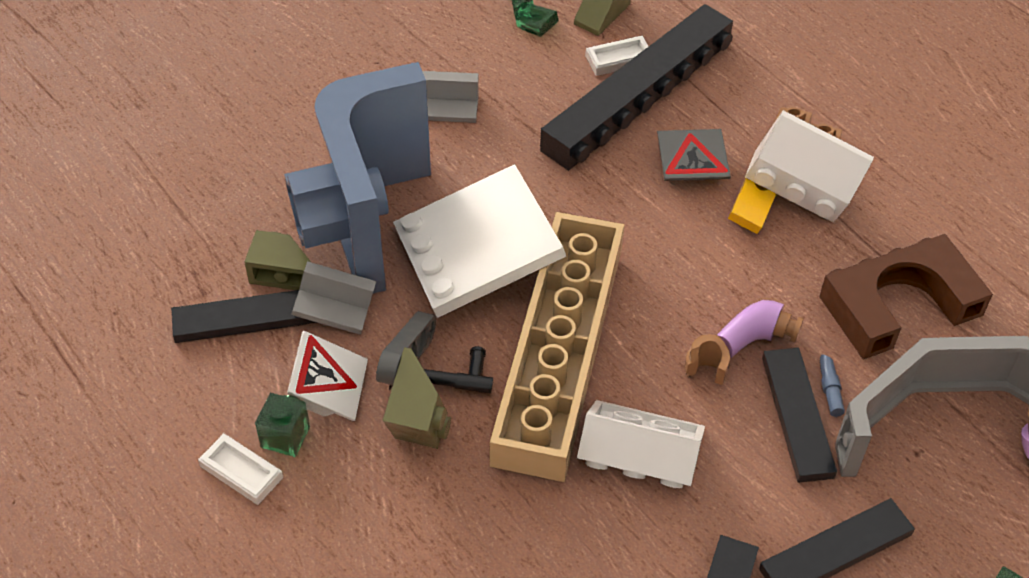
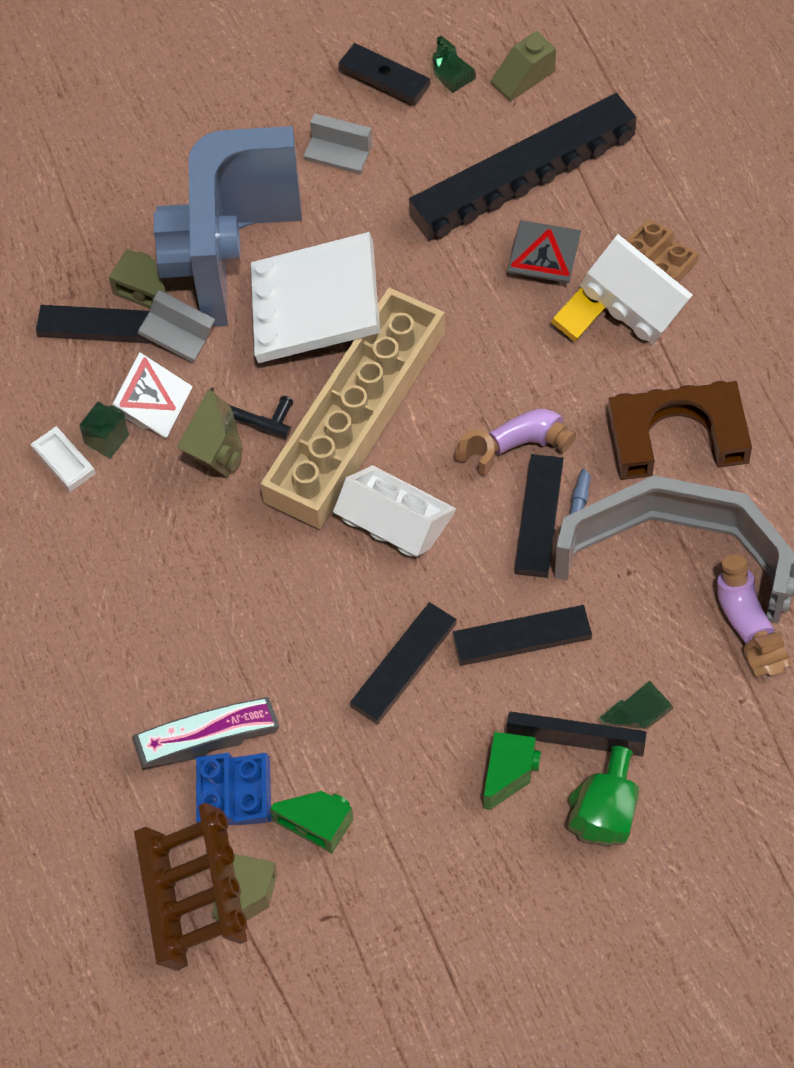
camera: 20 degrees right, 10 degrees up
(415, 335) = (224, 383): dark grey beam -> none
(469, 29) = (384, 73): none -> black tile
(614, 55) = (516, 127): white tile -> none

